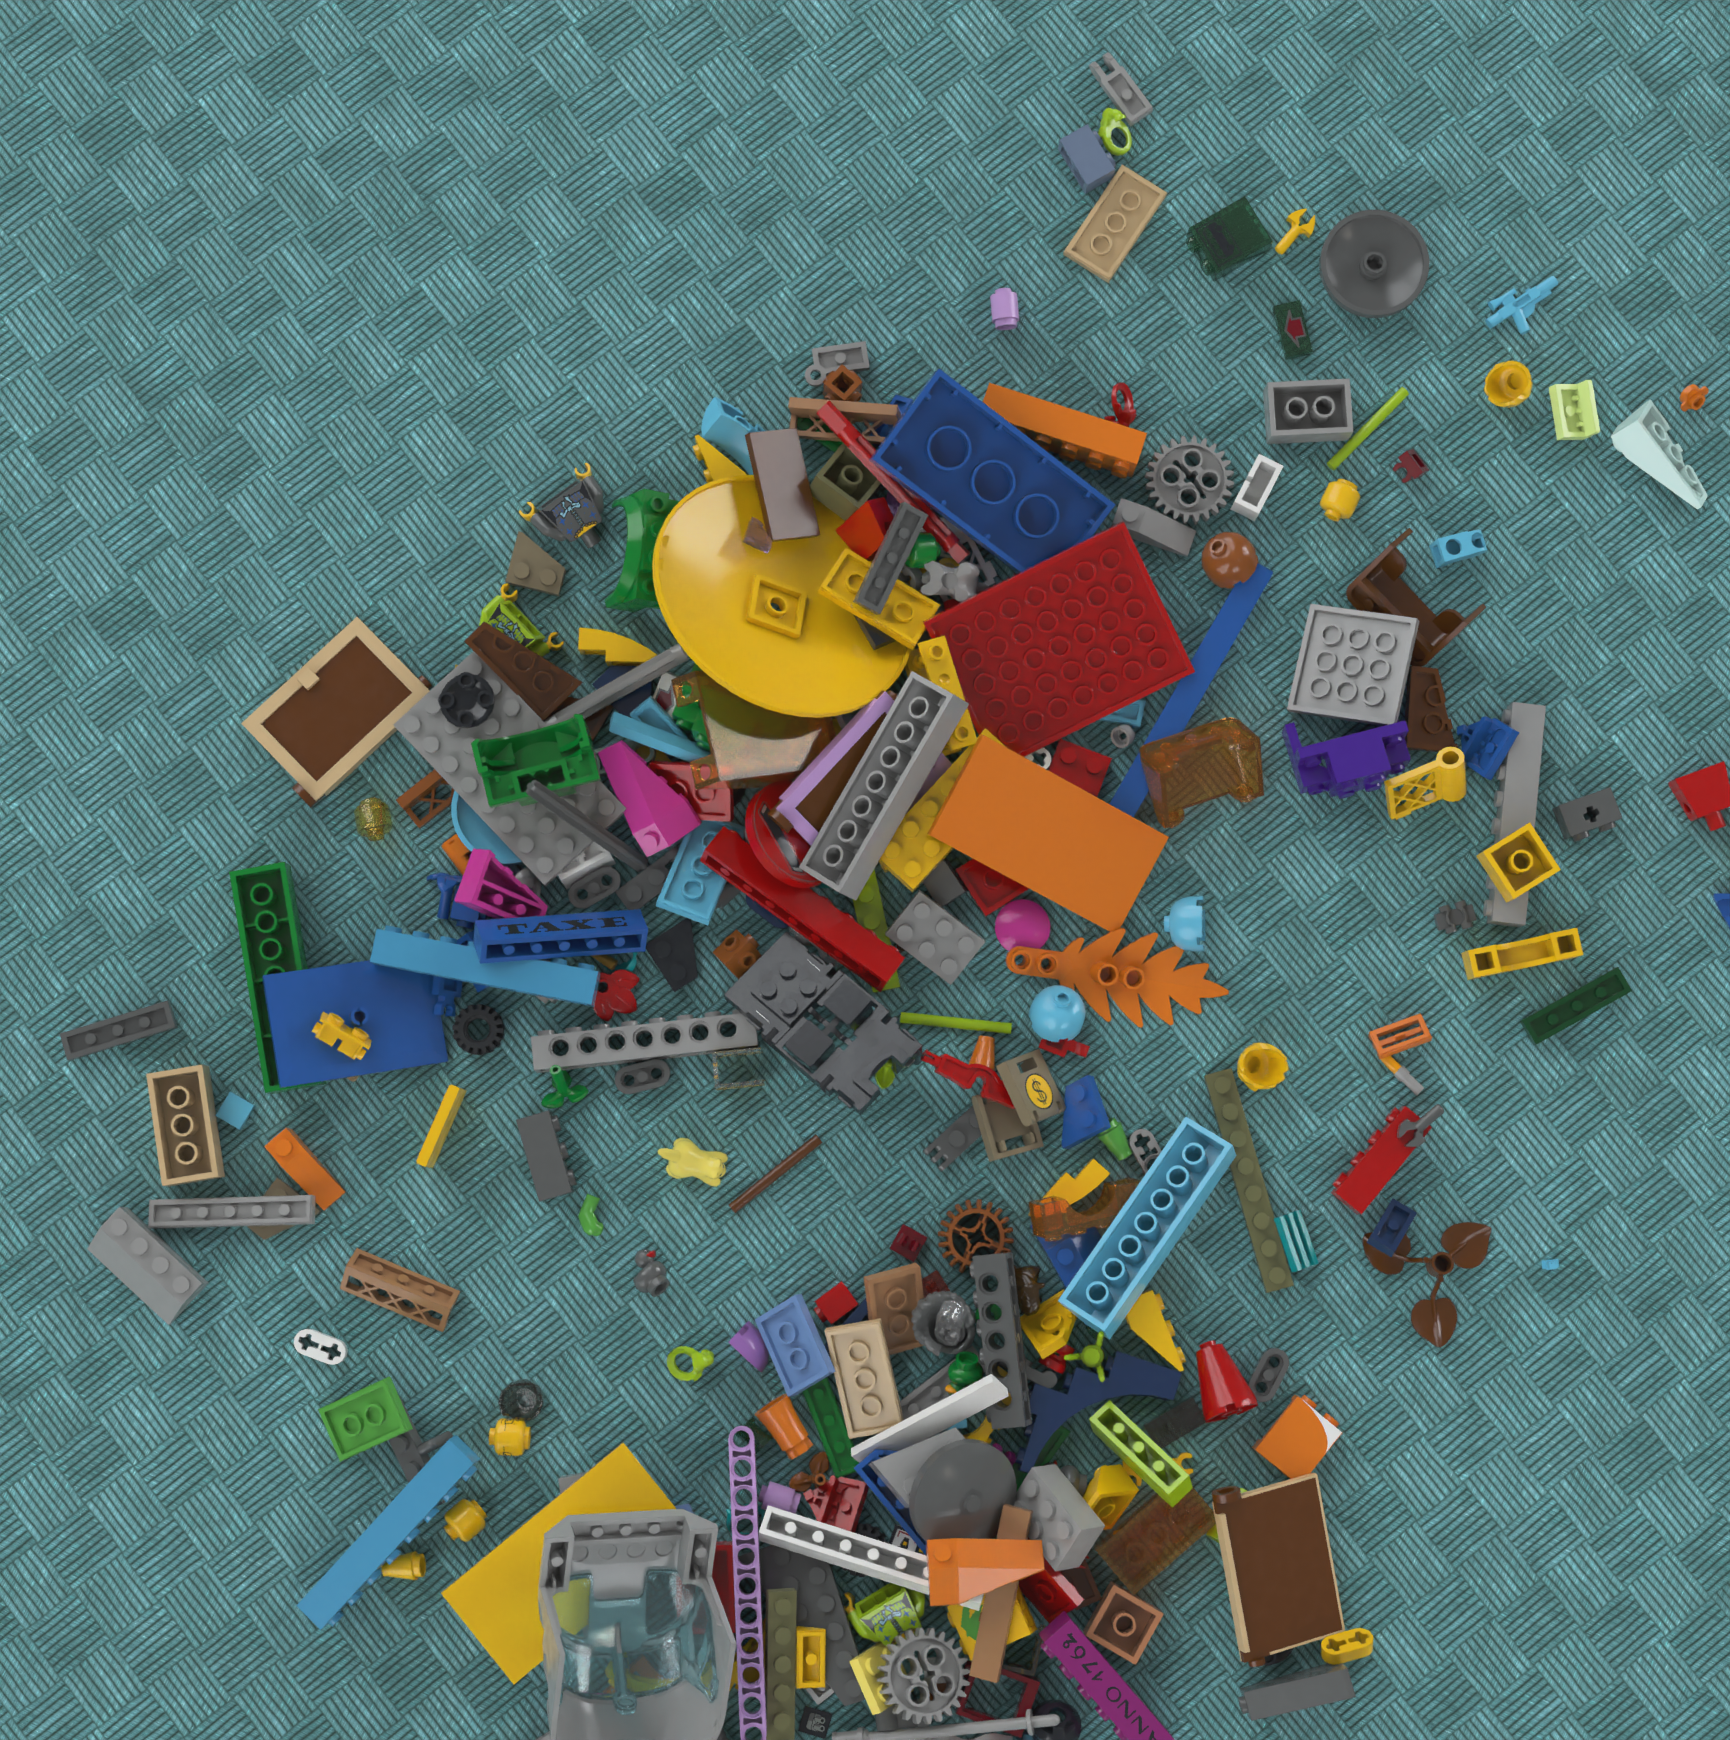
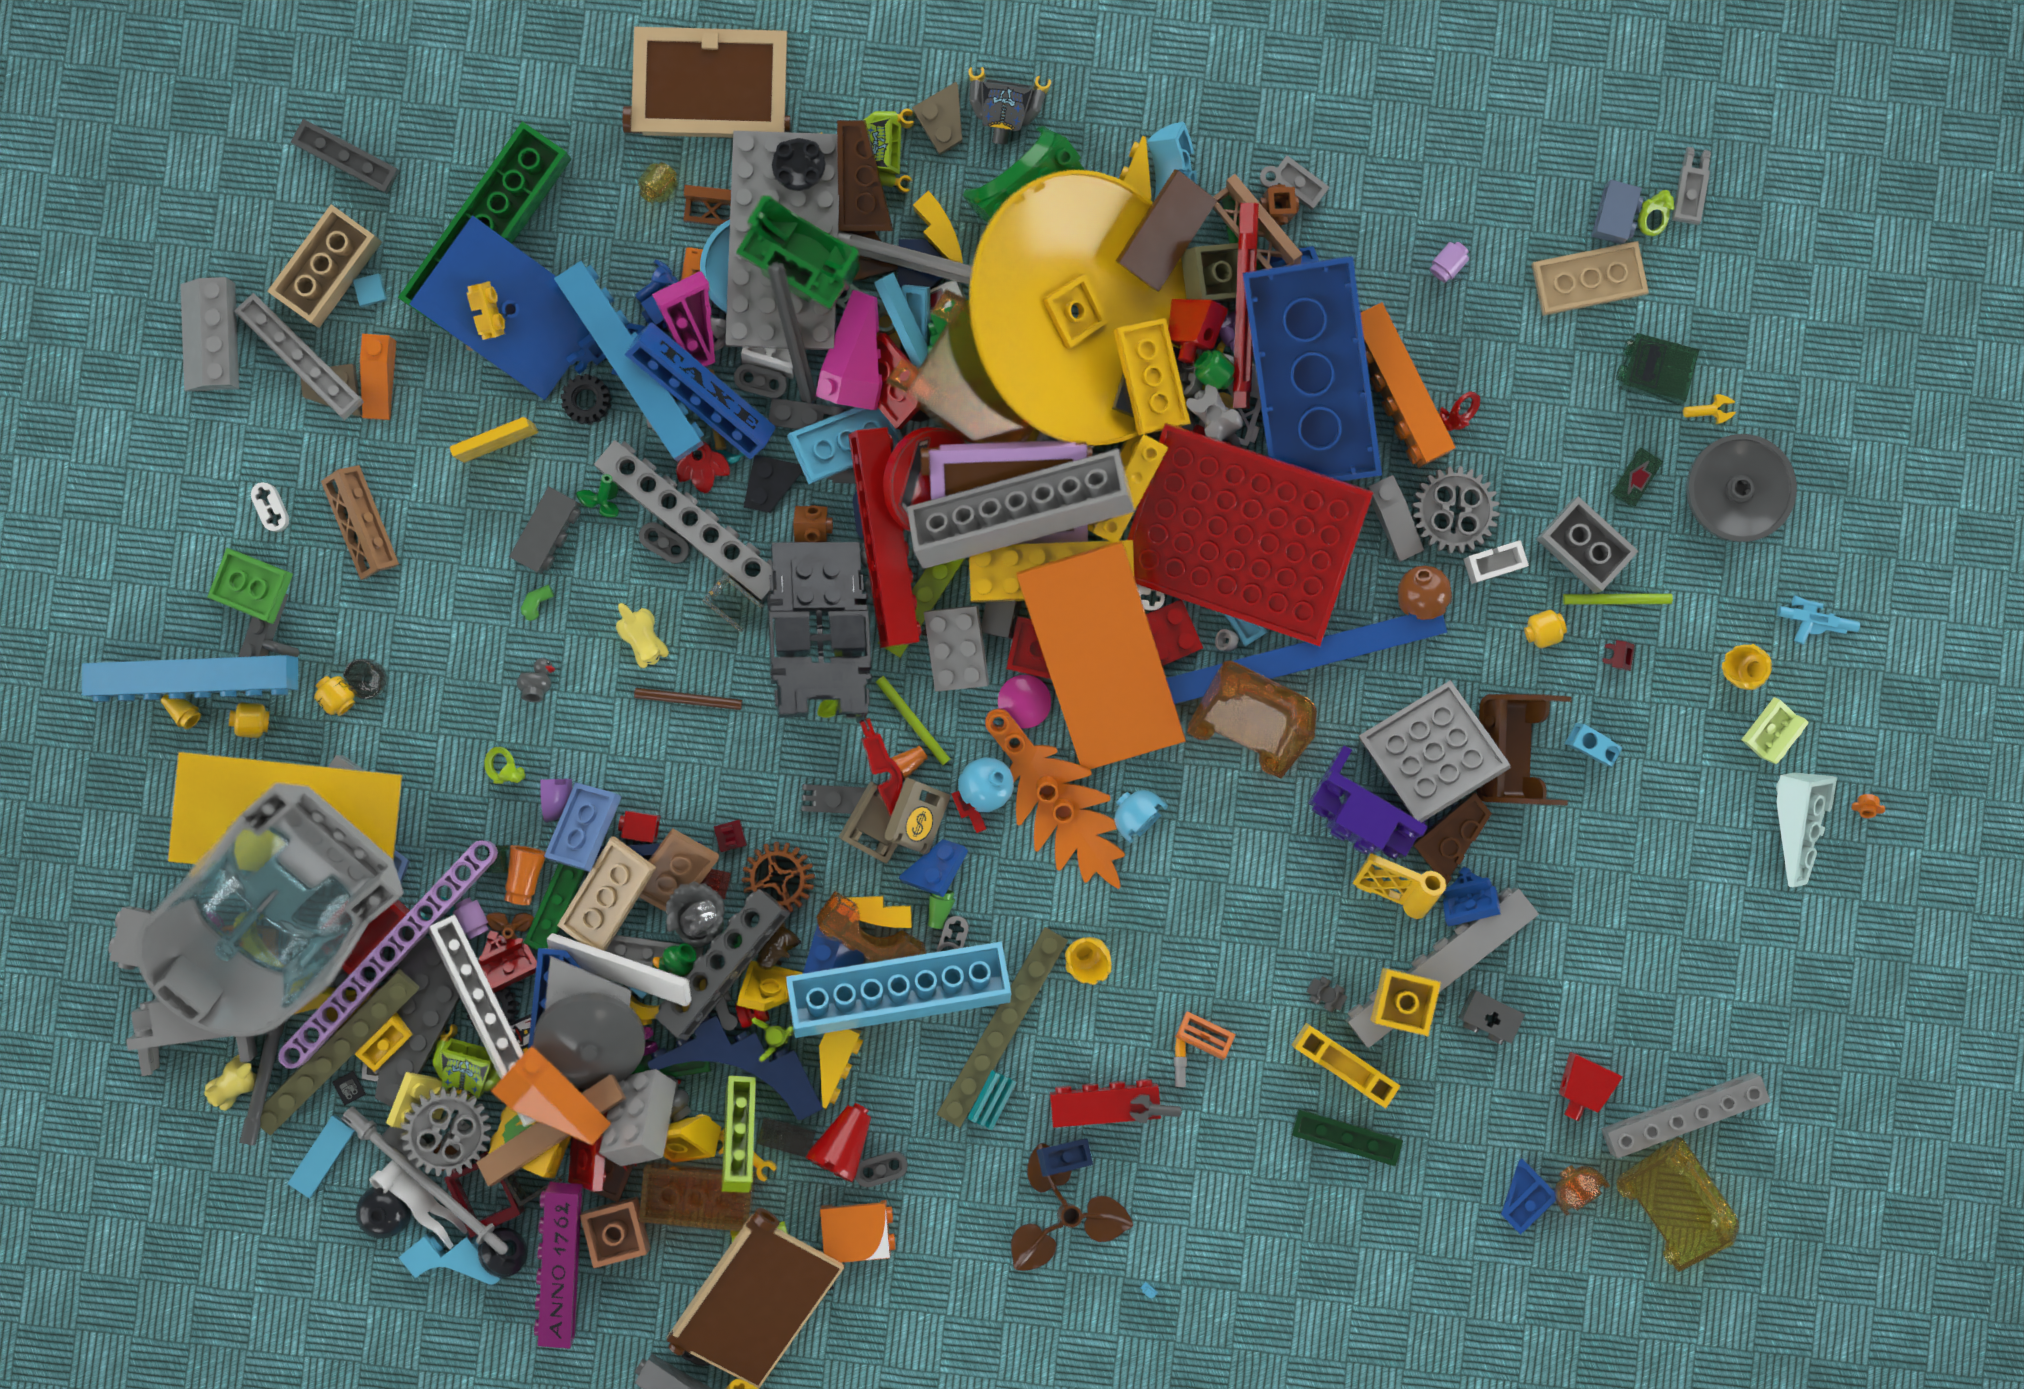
camera: 50 degrees right, 5 degrees up
(757, 536) = (1111, 249): tile -> none
(890, 558) = (1186, 356): dark grey plate -> none

